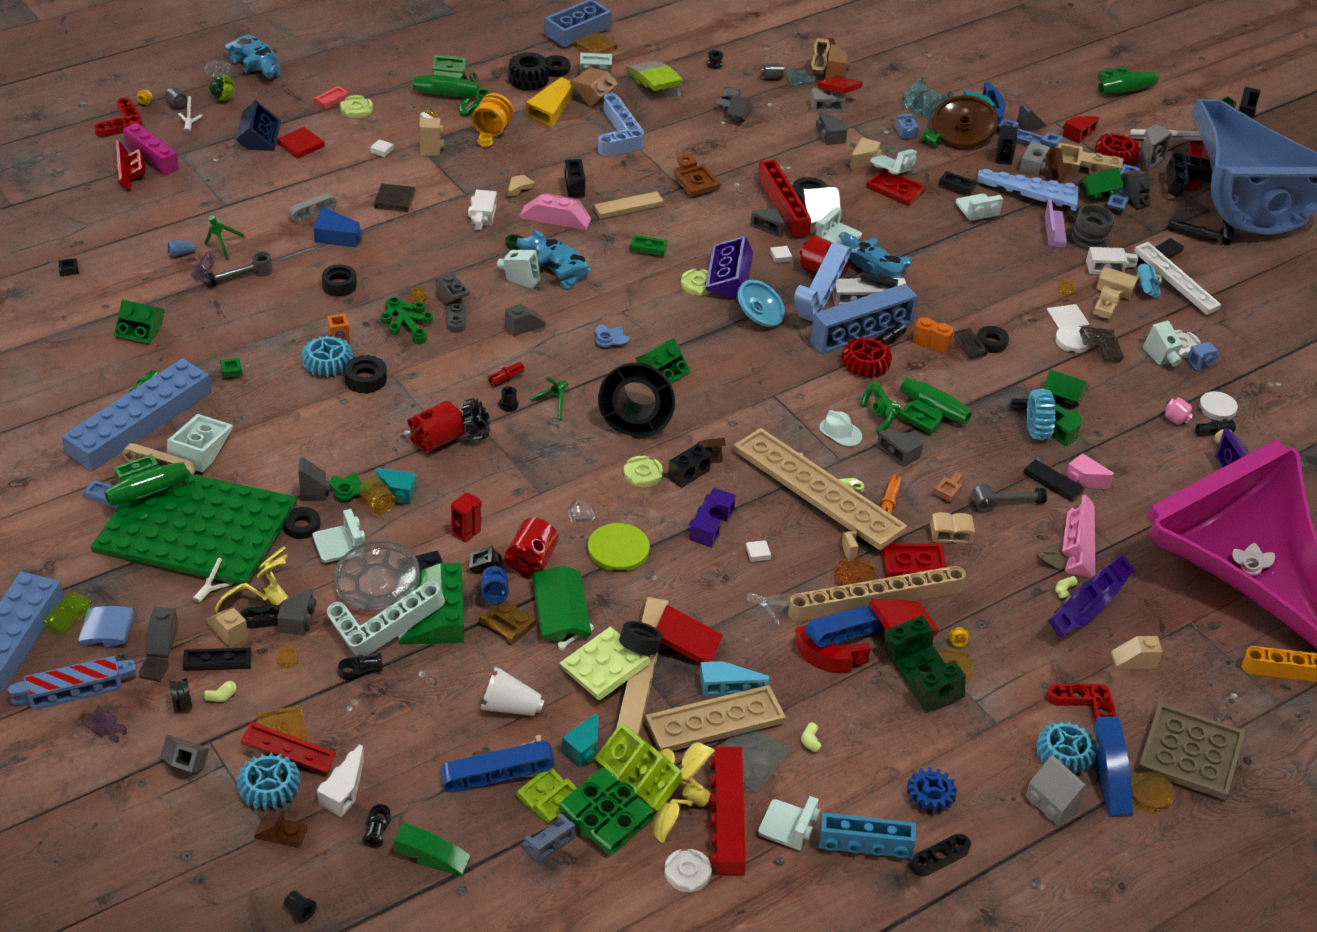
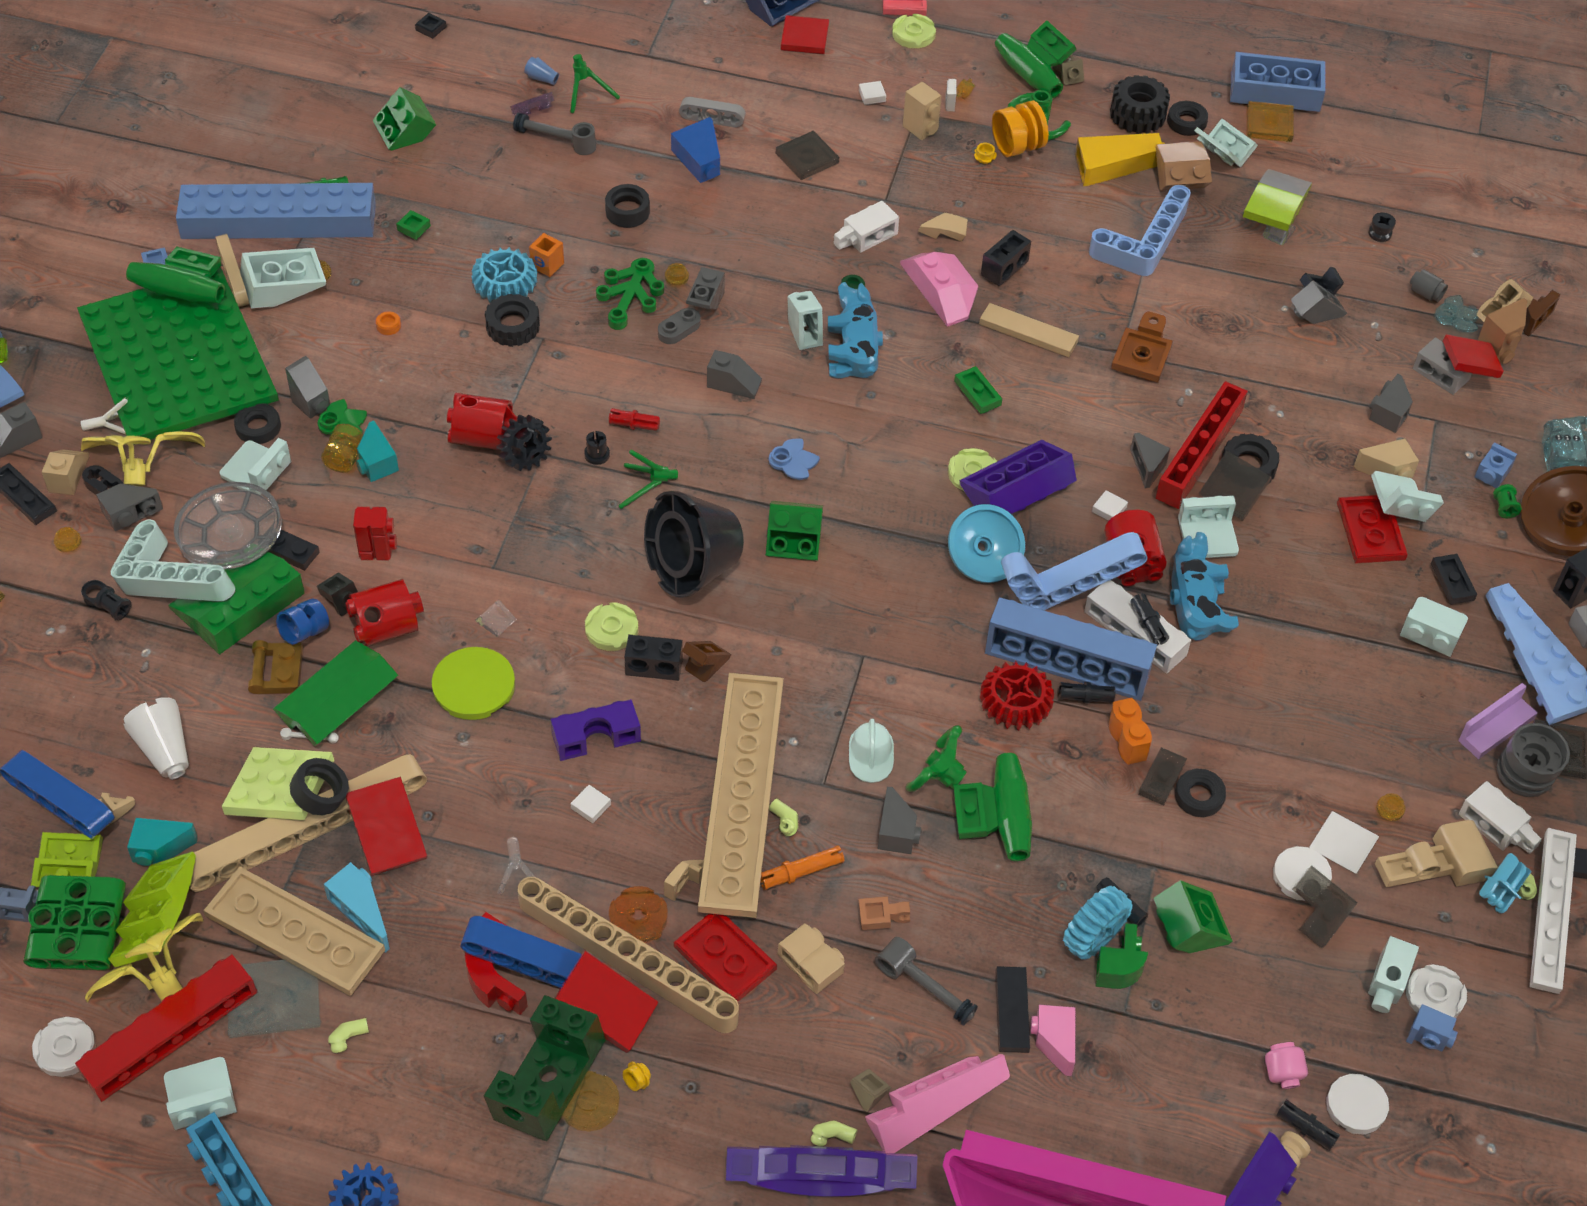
camera: 50 degrees right, 10 degrees up
(294, 424) = (388, 323): none -> orange tile

